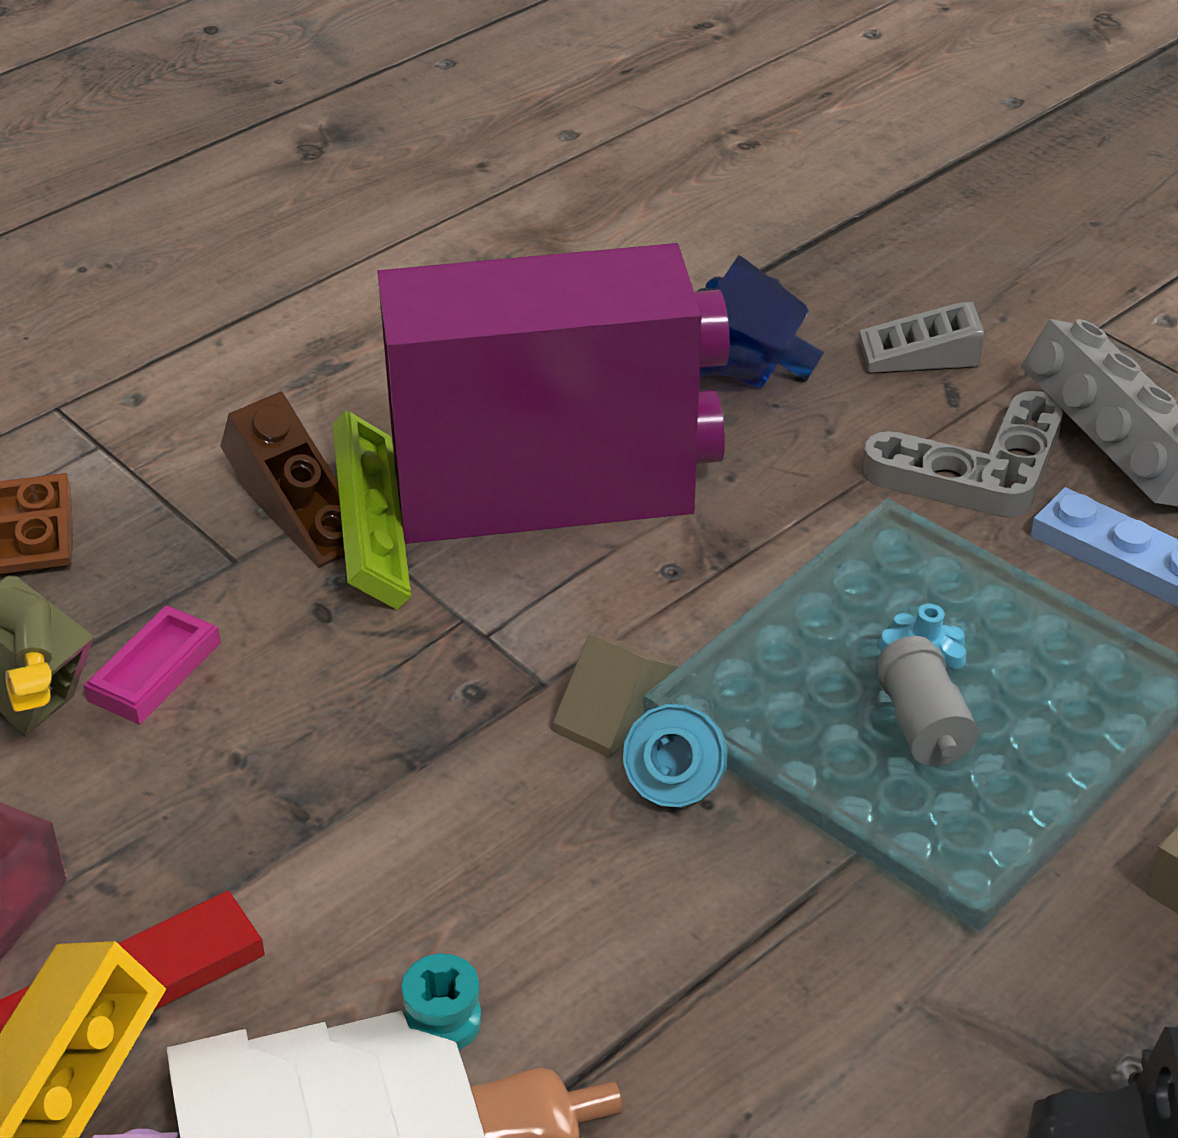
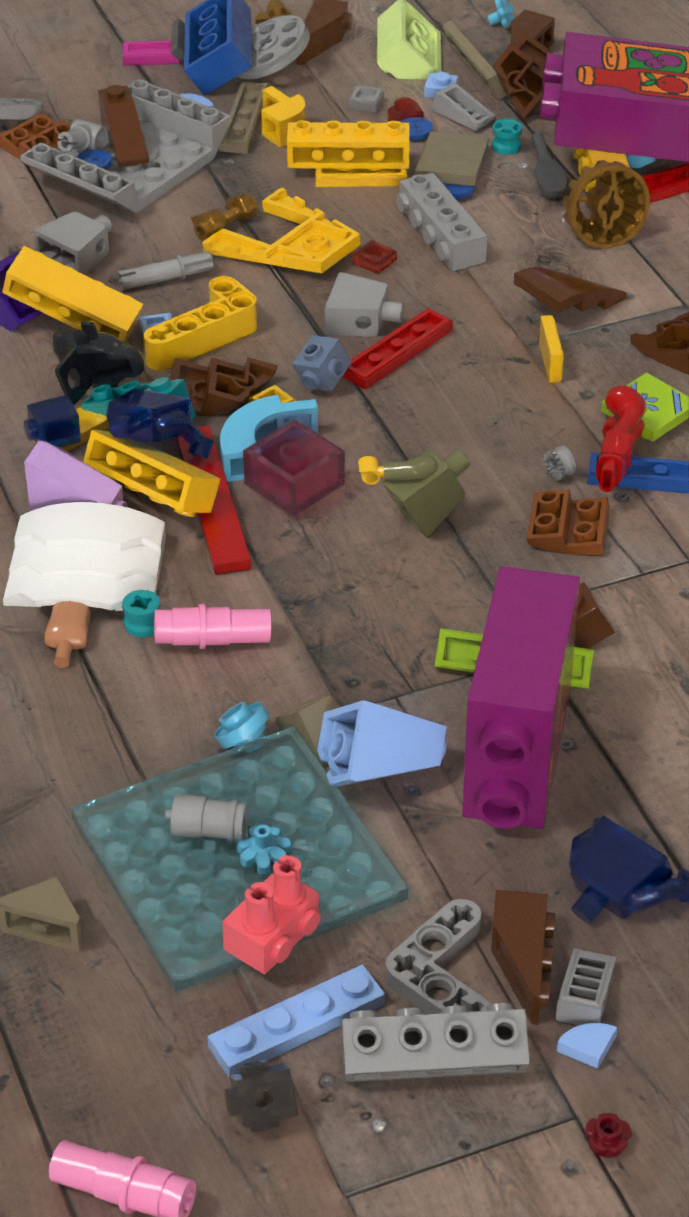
camera: 110 degrees right, 0 degrees up
(152, 664) = (432, 564): dark pink tile -> none
(448, 878) = (211, 626): none -> bright pink piece
(664, 579) = (377, 742): none -> light blue slope
(912, 385) = (519, 946): none -> reddish brown slope
(1004, 327) = (588, 1042): none -> light blue tile
(1067, 572) = (272, 917): none -> coral brick
(1112, 292) = (608, 1144): none -> dark red plate

